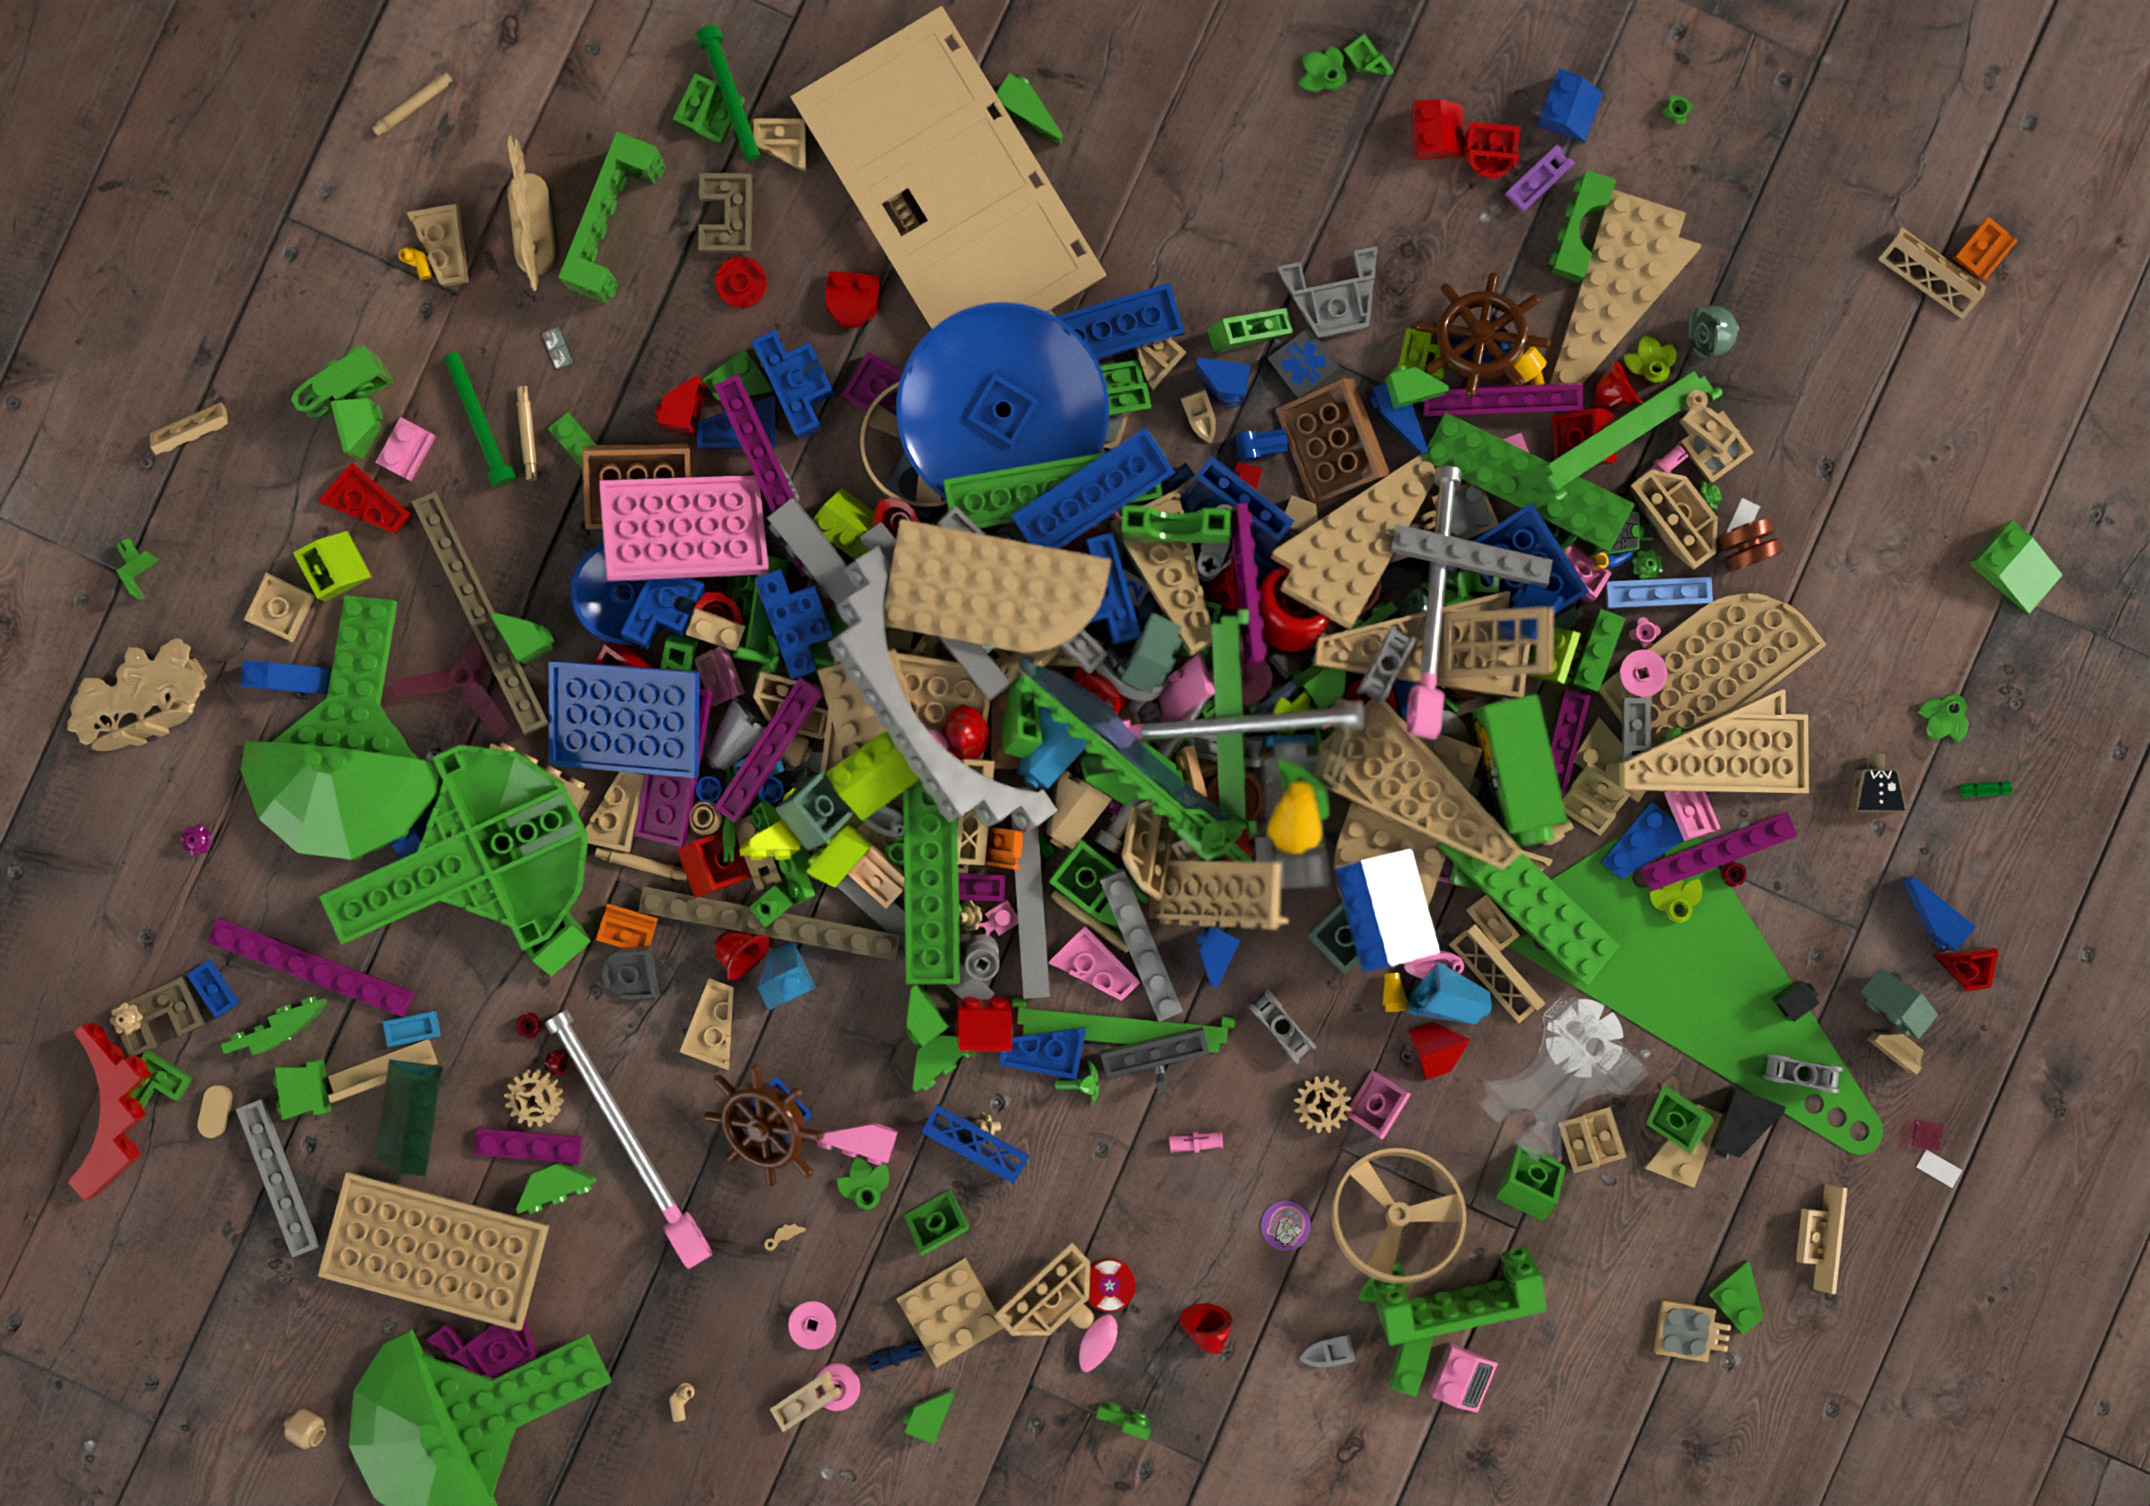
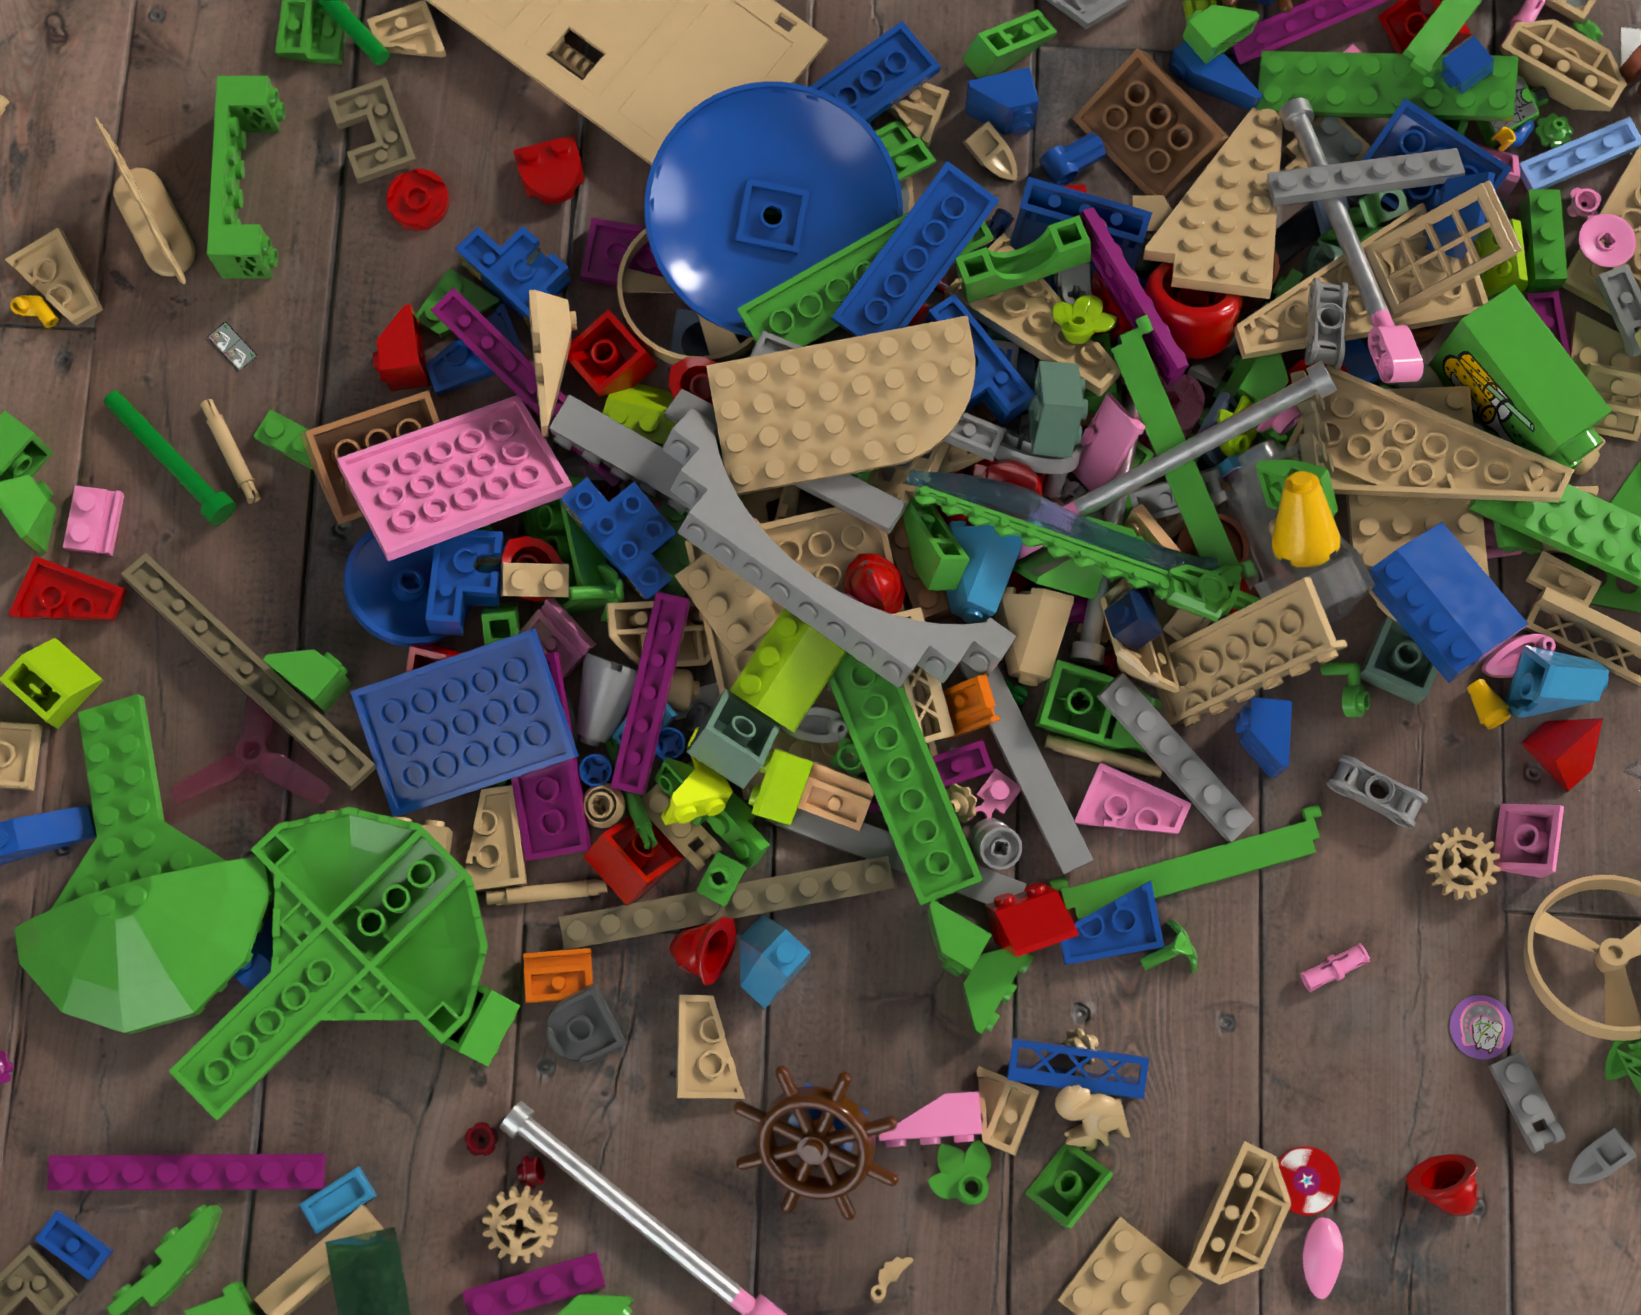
camera: 20 degrees left, 10 degrees down
(795, 446) = (551, 341): none -> tan wedge
(838, 471) = (609, 356): none -> red slope
(911, 1151) = (1004, 1110): none -> tan wing
(977, 1181) = (1098, 1115): none -> tan animal
(1082, 1317) = (1291, 1233): tan cylinder -> none
(1146, 833) = (1133, 617): none -> dark blue slope
(1155, 1054) = (1244, 880): dark grey plate -> none
(1205, 585) = (1082, 318): none -> lime plate
(1293, 1290) = (1526, 1101): none -> light grey plate
(1296, 950) = (1354, 697): none -> bright green plate
(1303, 363) = (1082, 59): dark grey tile -> none
(1587, 497) = (1466, 65): none -> blue brick

